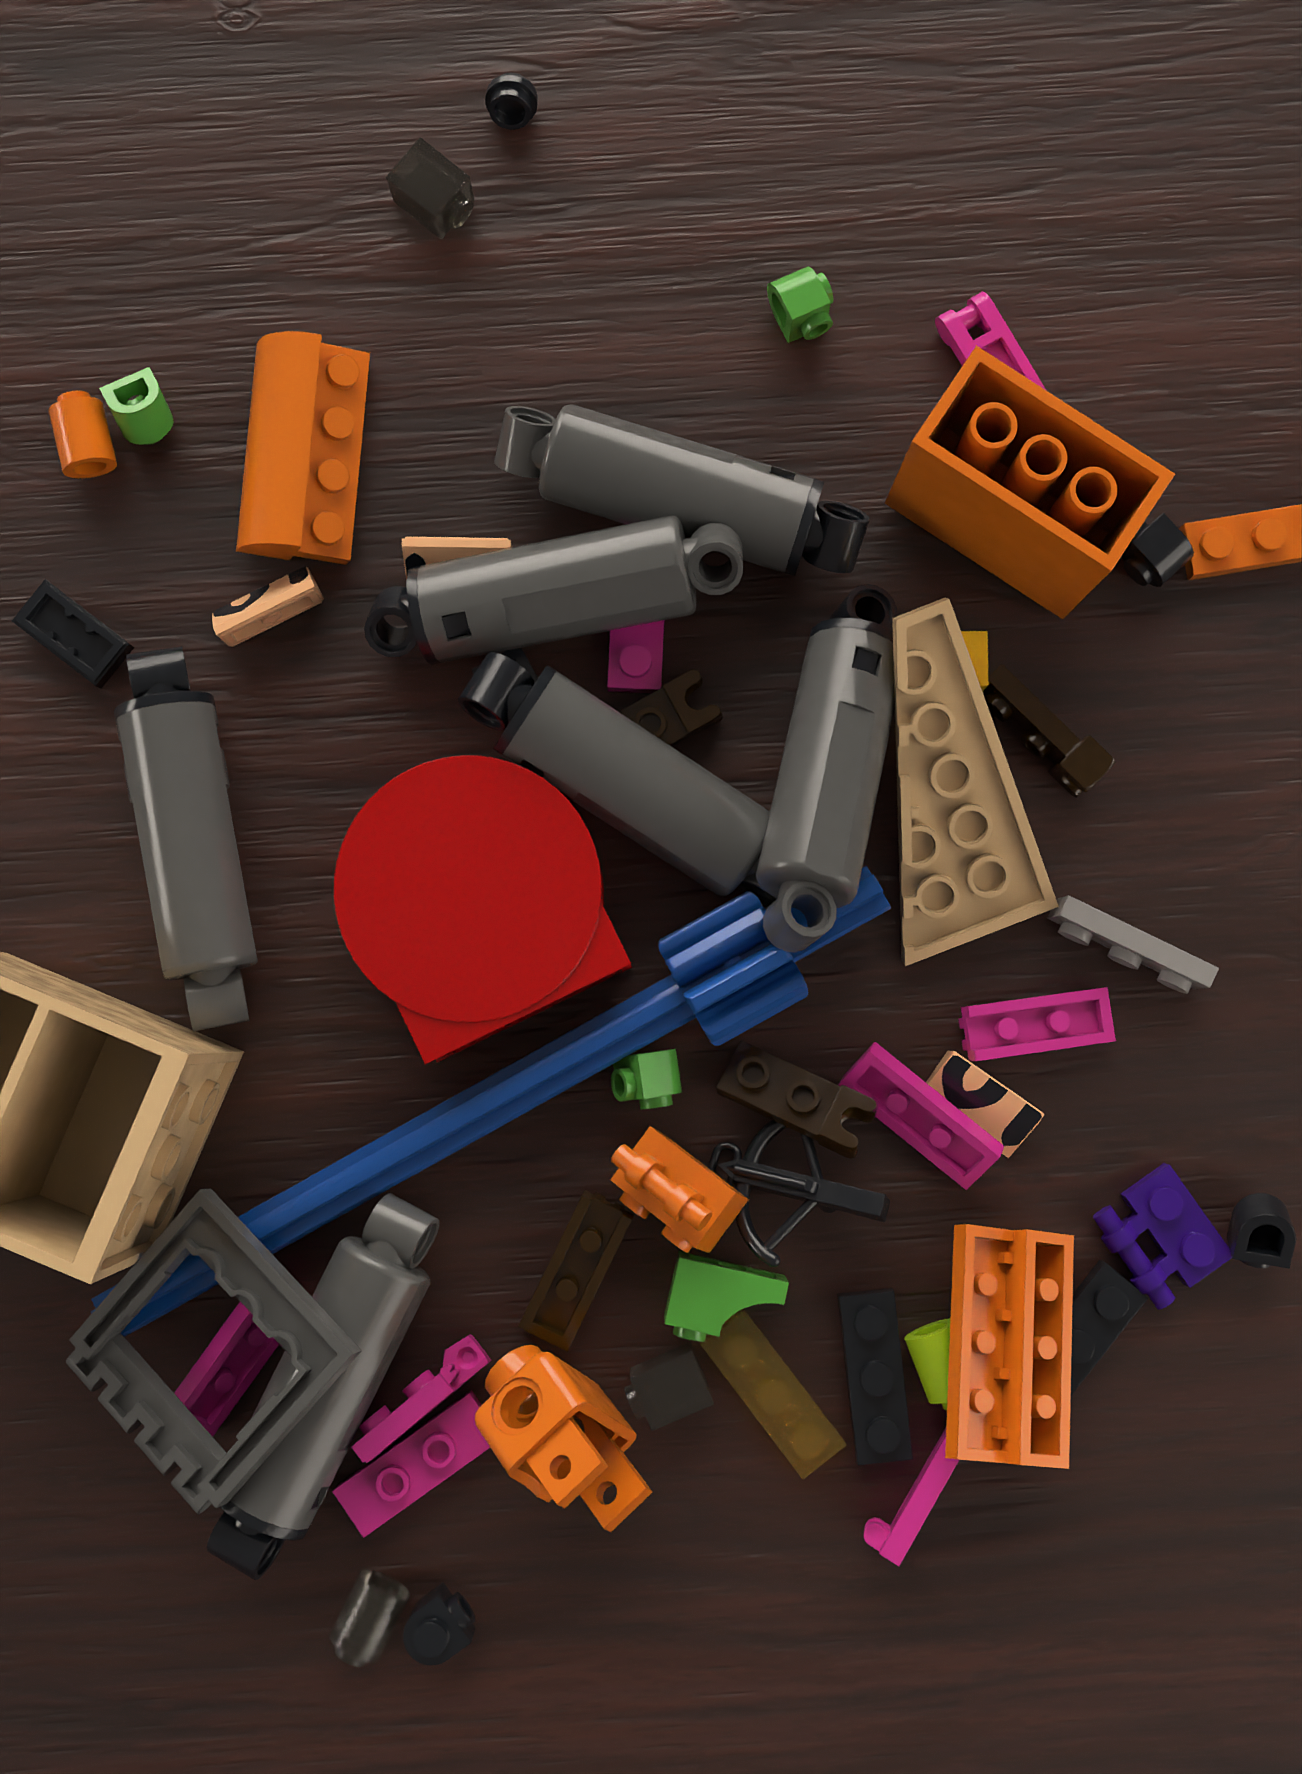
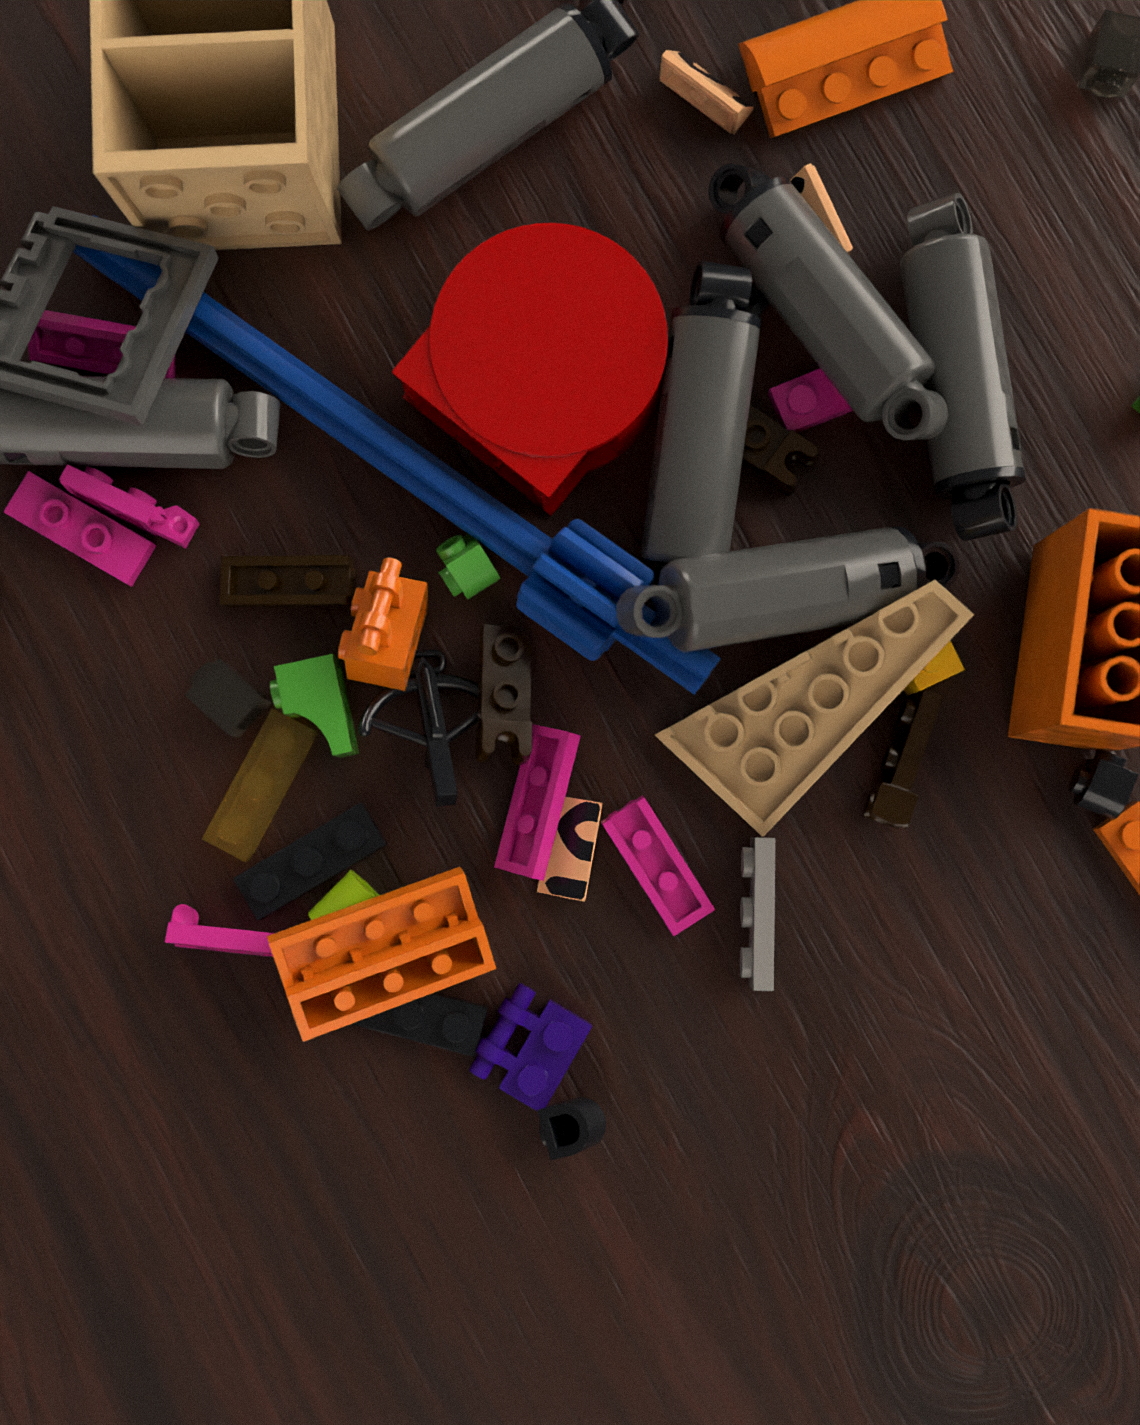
camera: 75 degrees right, 0 degrees up
(543, 1447) = (131, 598): orange piece -> none

